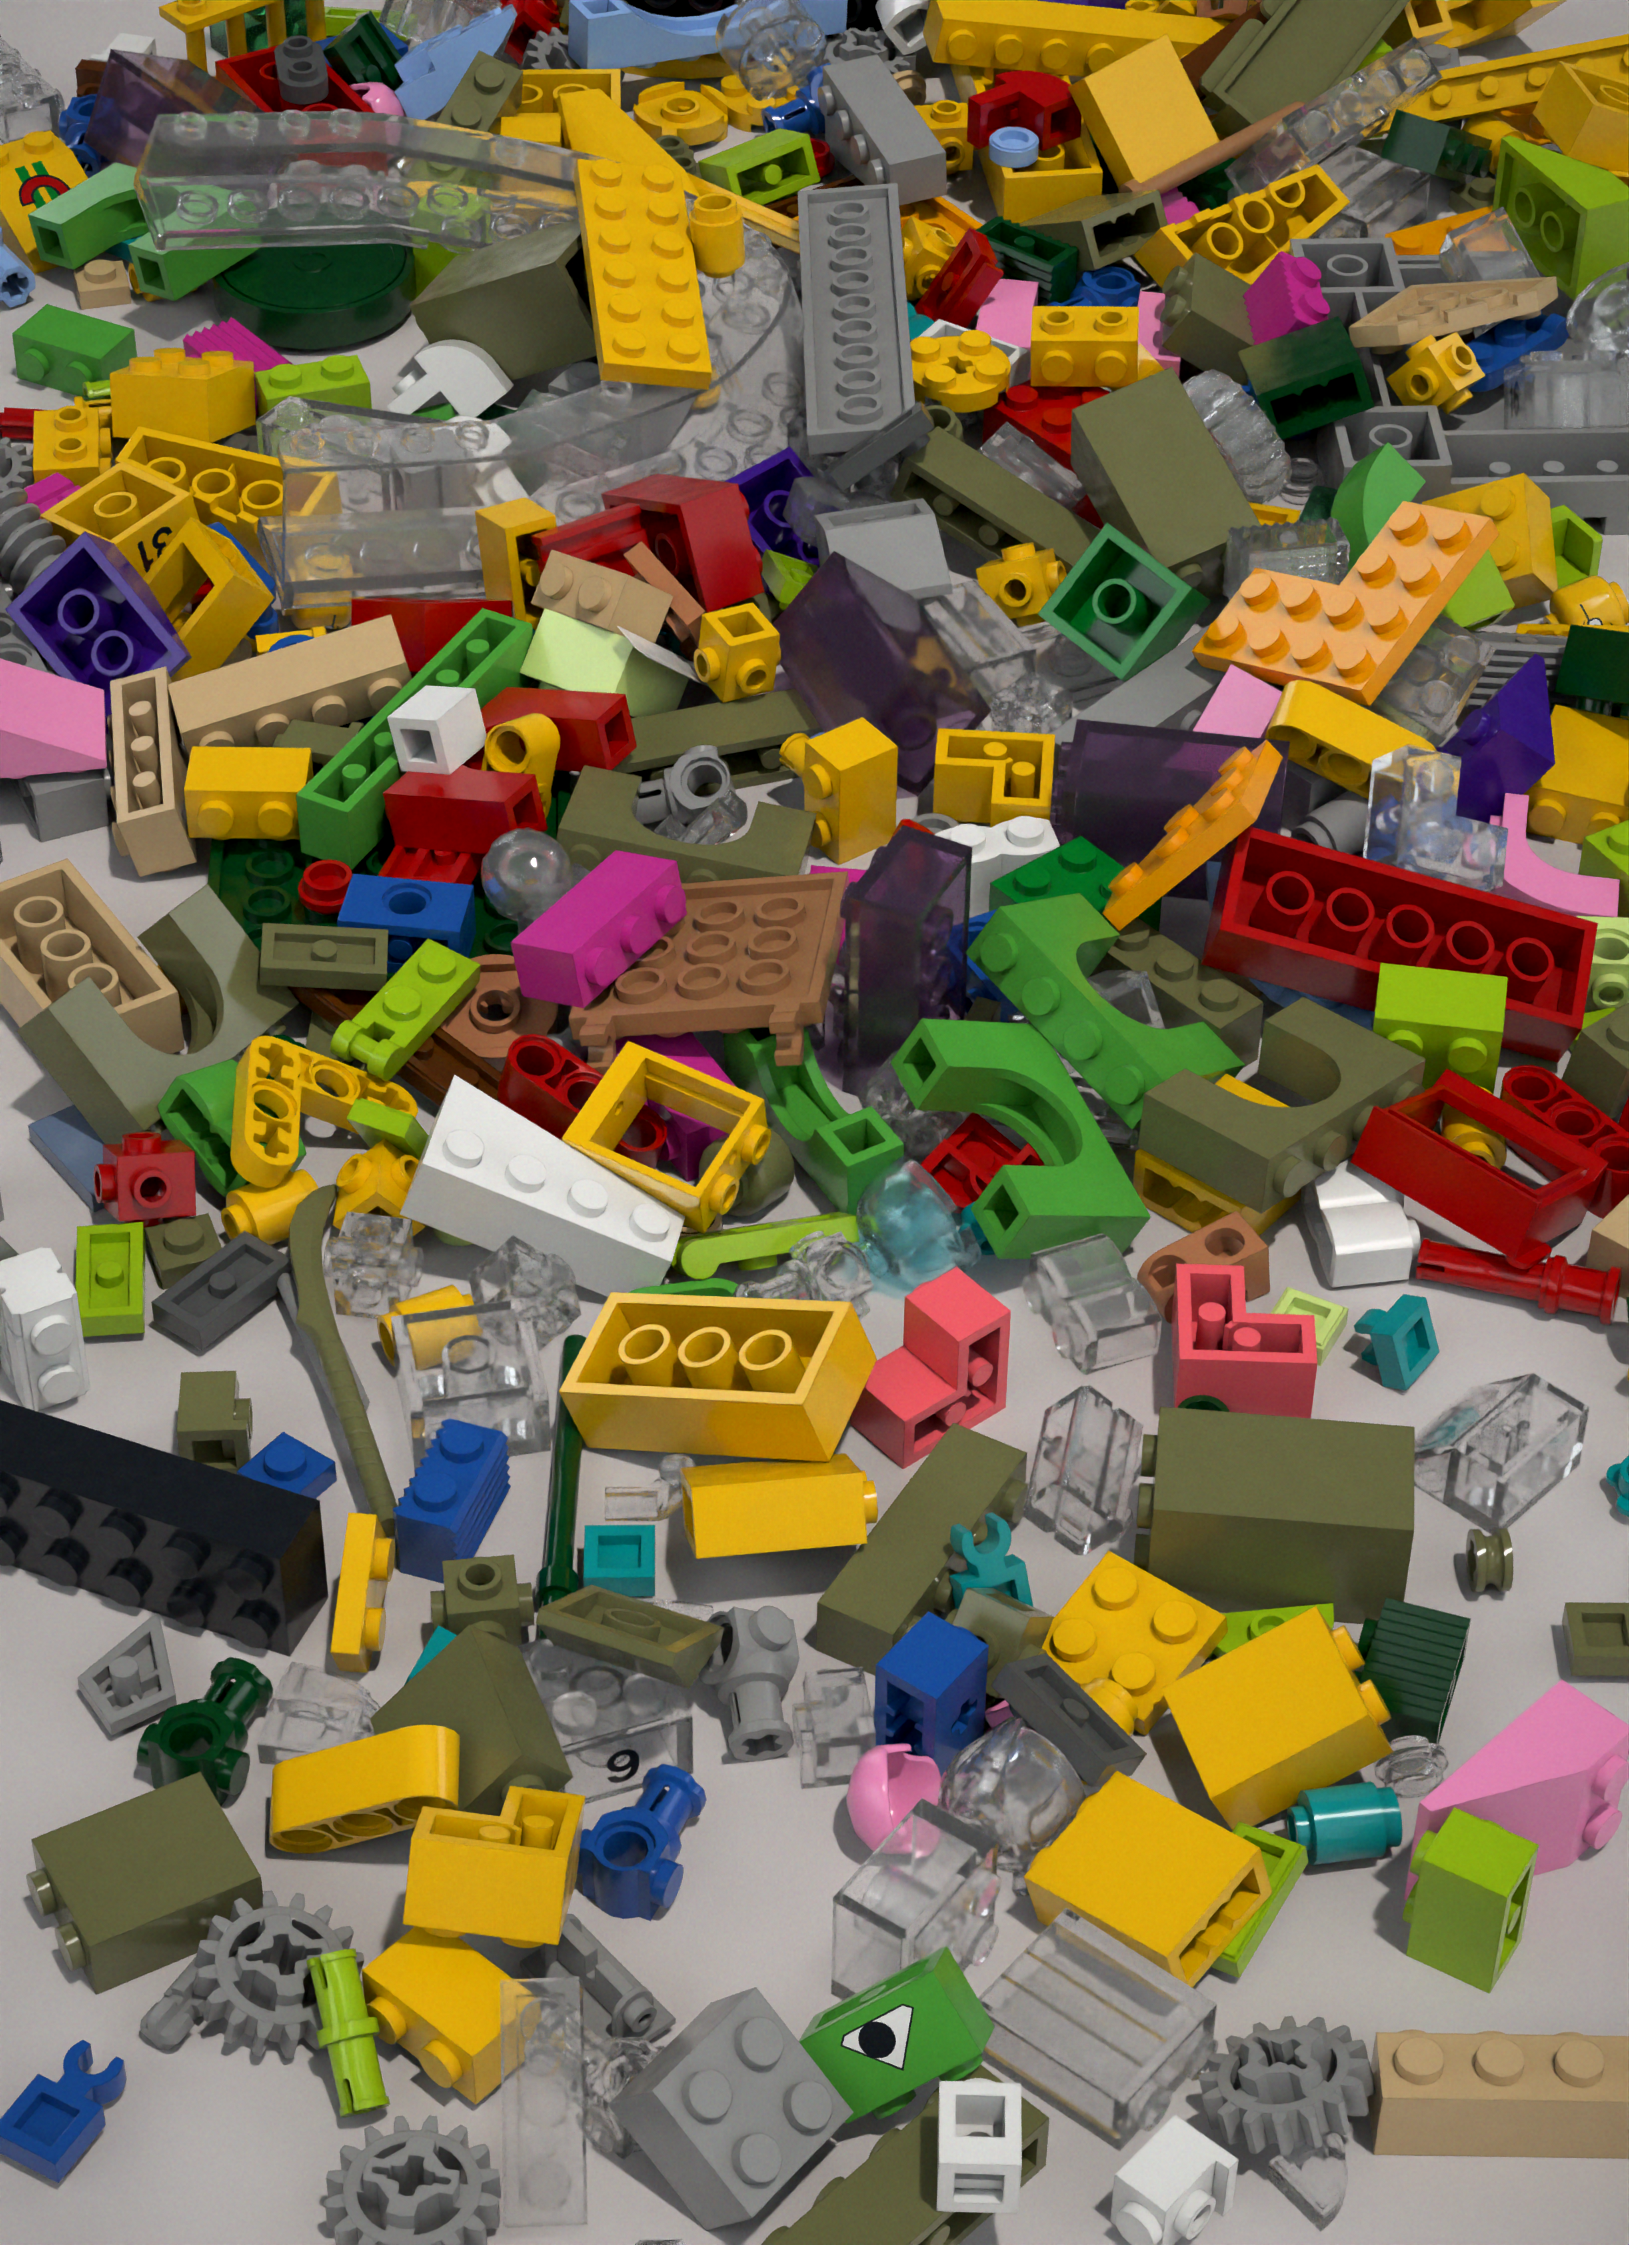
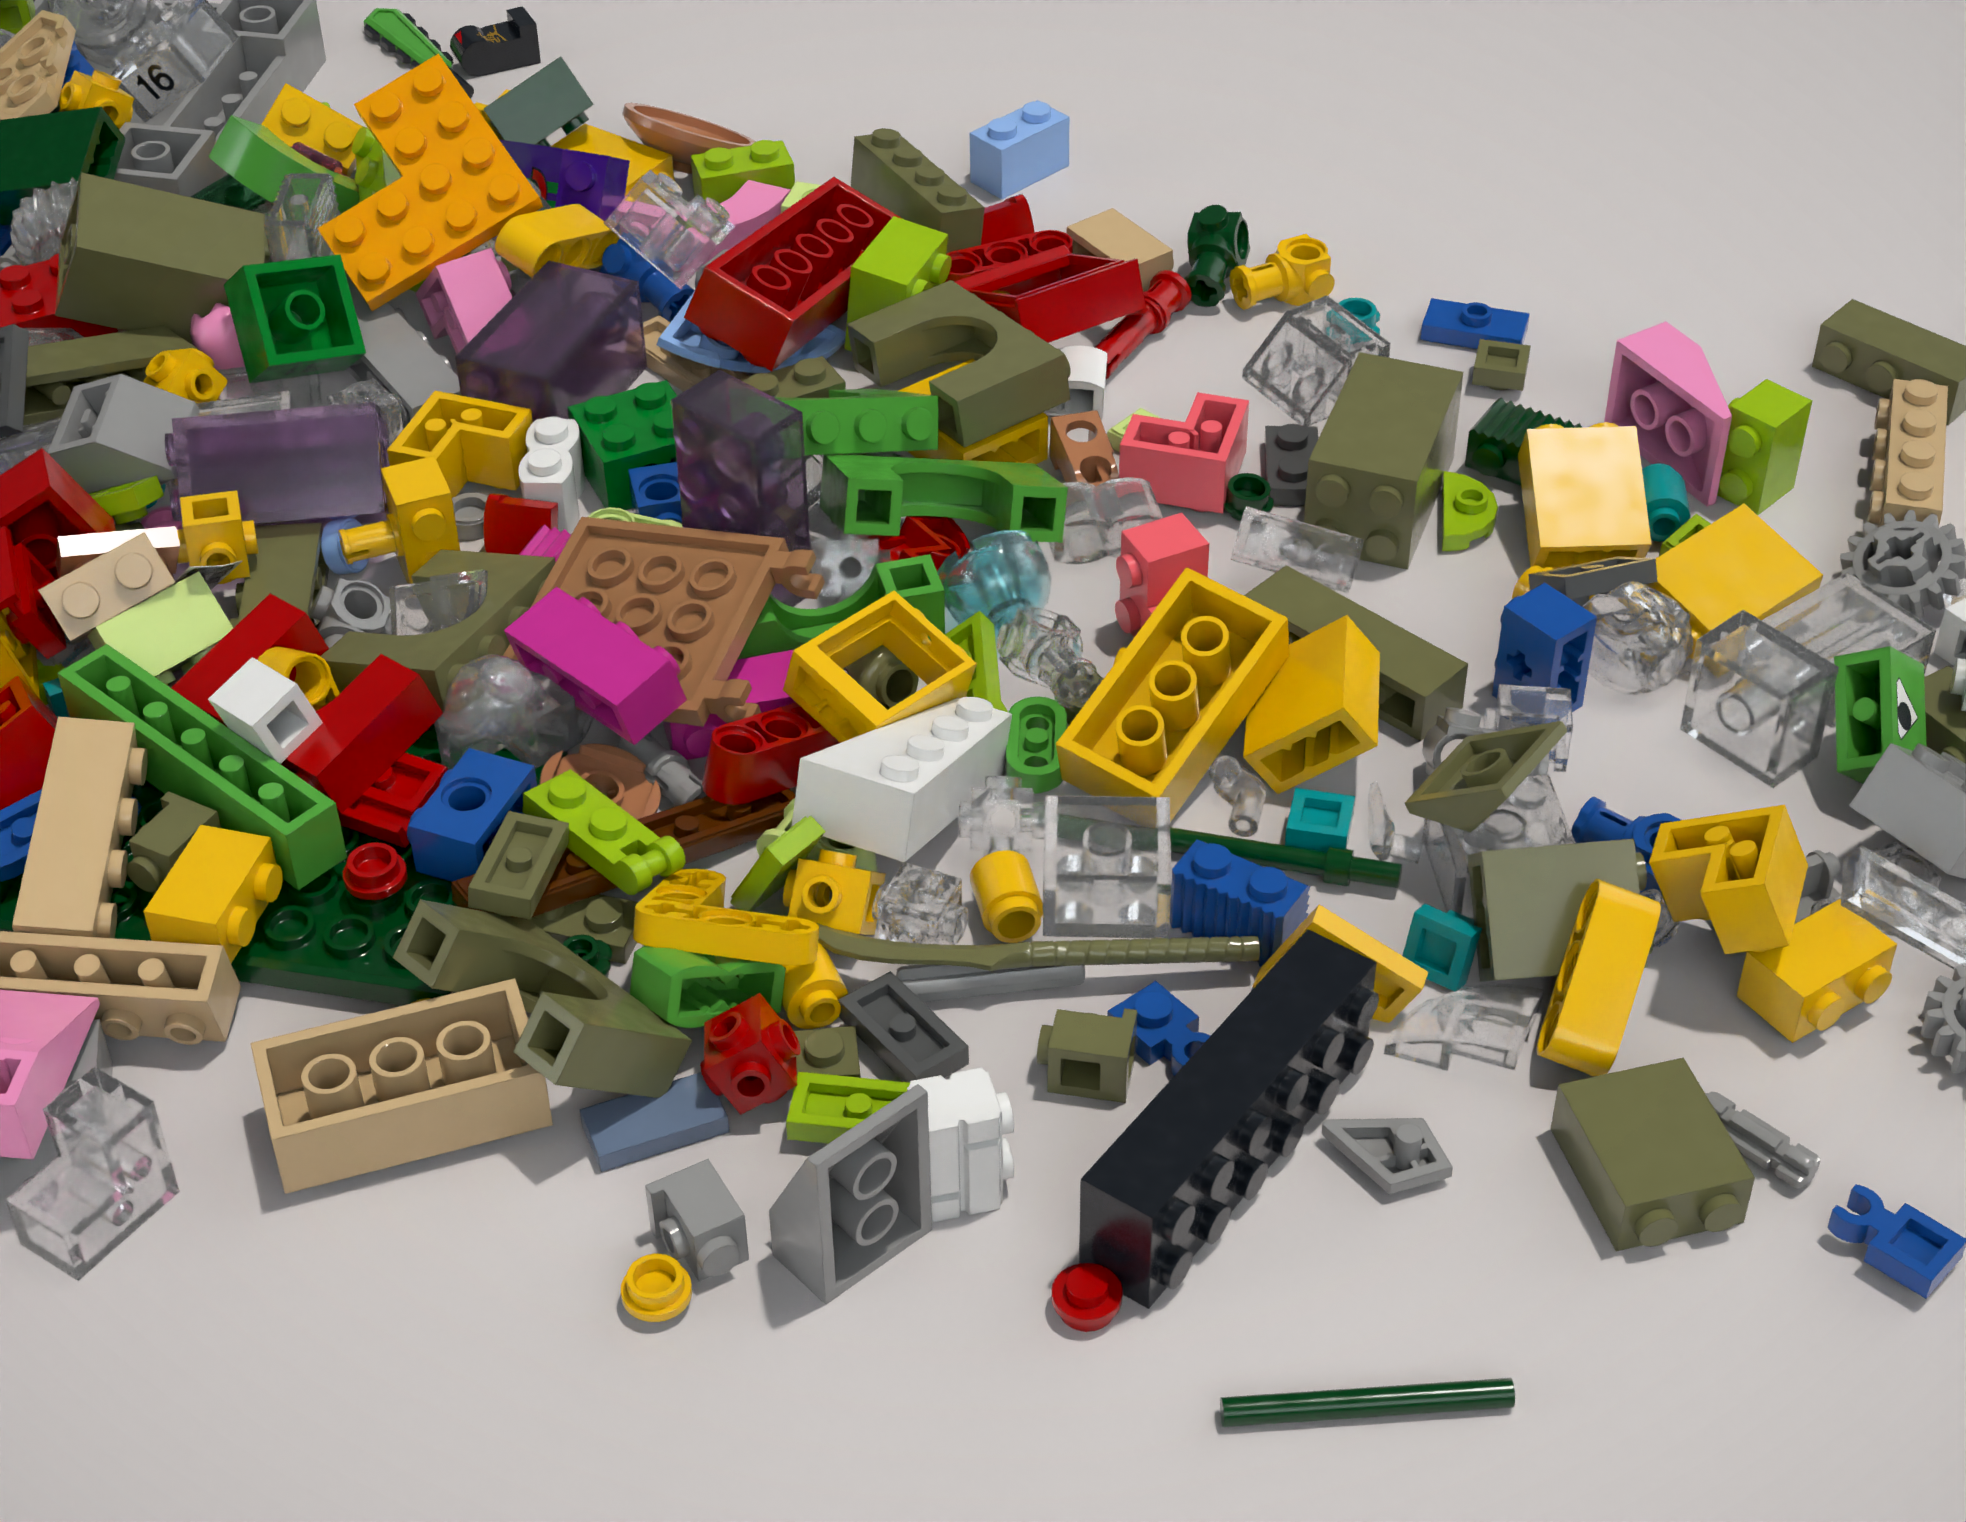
camera: 75 degrees left, 0 degrees up
(208, 1731) = (1494, 1099): dark green connector -> none
(270, 1980) = (1767, 1074): light grey gear -> none
(348, 2032) = (1843, 1031): lime pin -> none
(483, 1595) = (1377, 896): olive brick -> none
(887, 1788) = (1622, 705): bright pink hair -> none
(987, 1562) = (1405, 605): teal plate -> none
(1003, 1623) = (1469, 620): olive brick -> none
(1134, 1633) = (1460, 570): yellow plate -> none
(1196, 833) = (671, 301): light orange plate -> none
(1400, 1340) = (1185, 380): teal tile -> none

